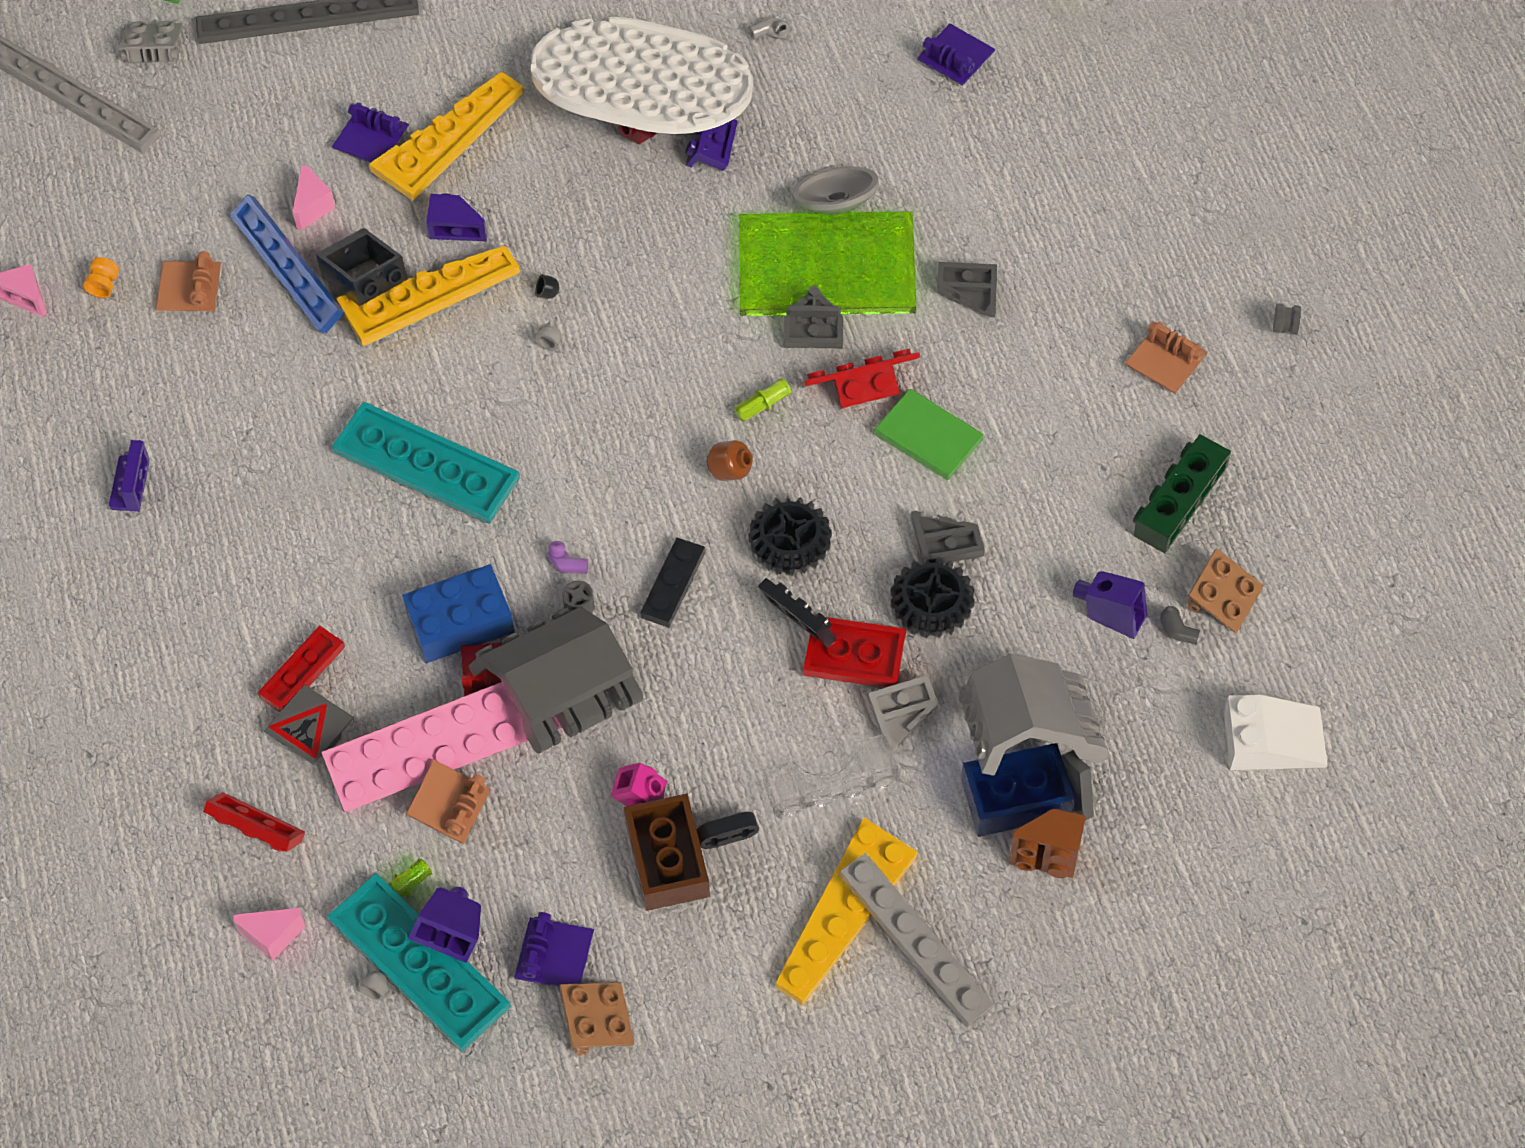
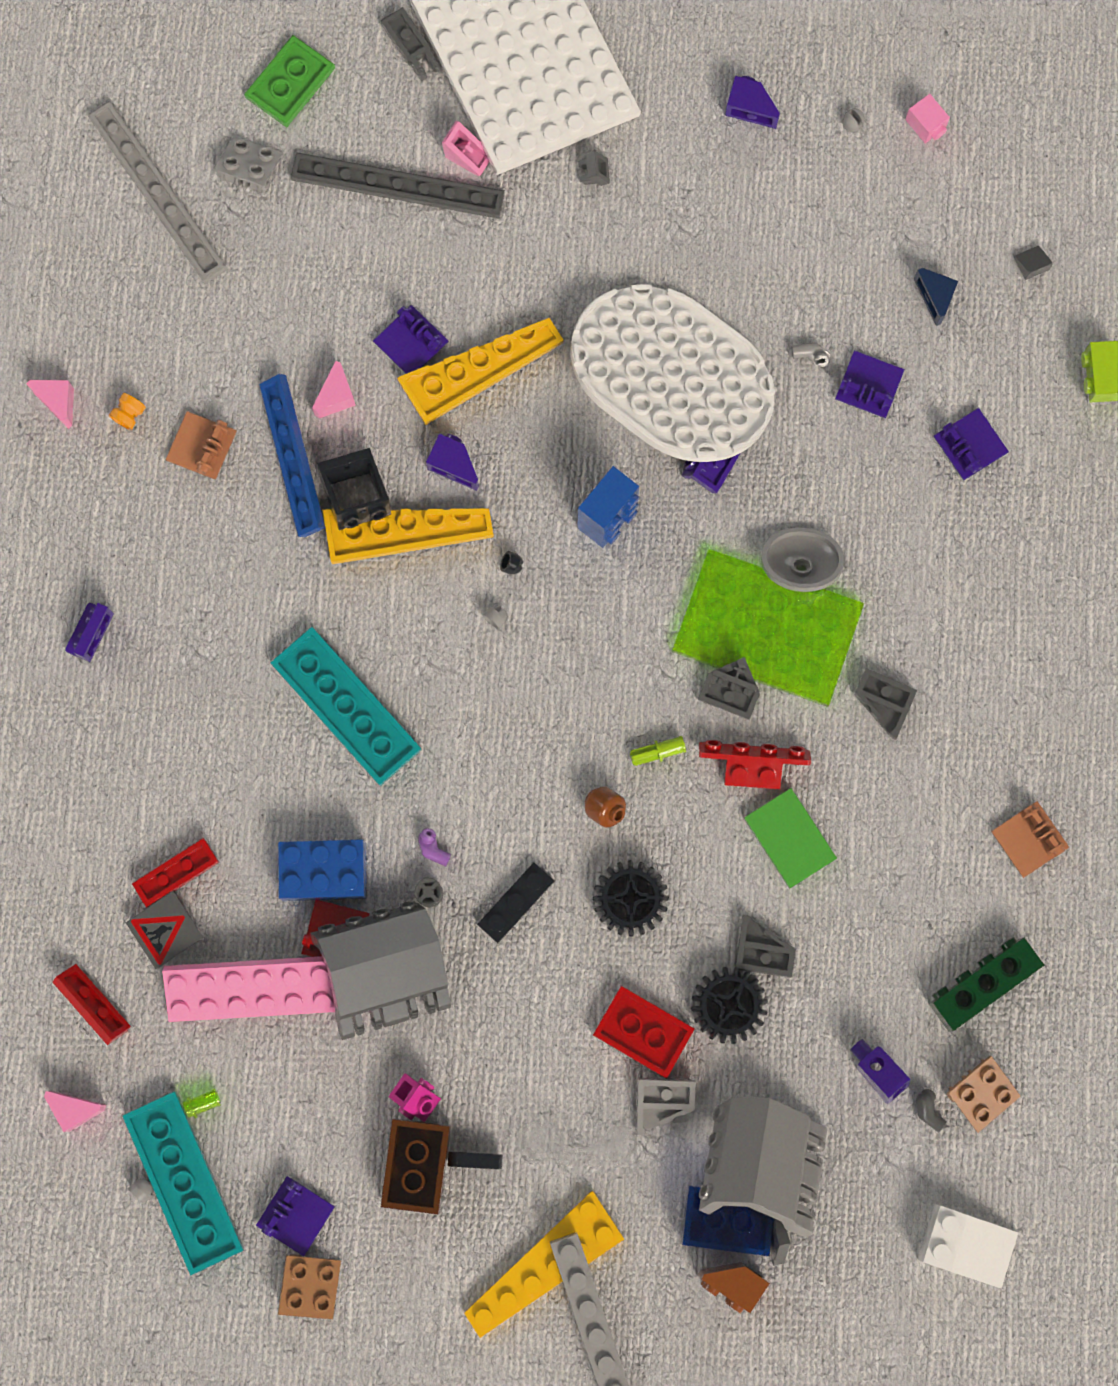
camera: 20 degrees right, 20 degrees up
(449, 801) = (255, 1046): nougat hinge -> none
(449, 923) = (217, 1164): dark purple torso -> none
(625, 197) = (608, 507): none -> blue brick
(798, 611) = (607, 982): black plate -> none
(837, 36) = (869, 384): none -> dark purple hinge

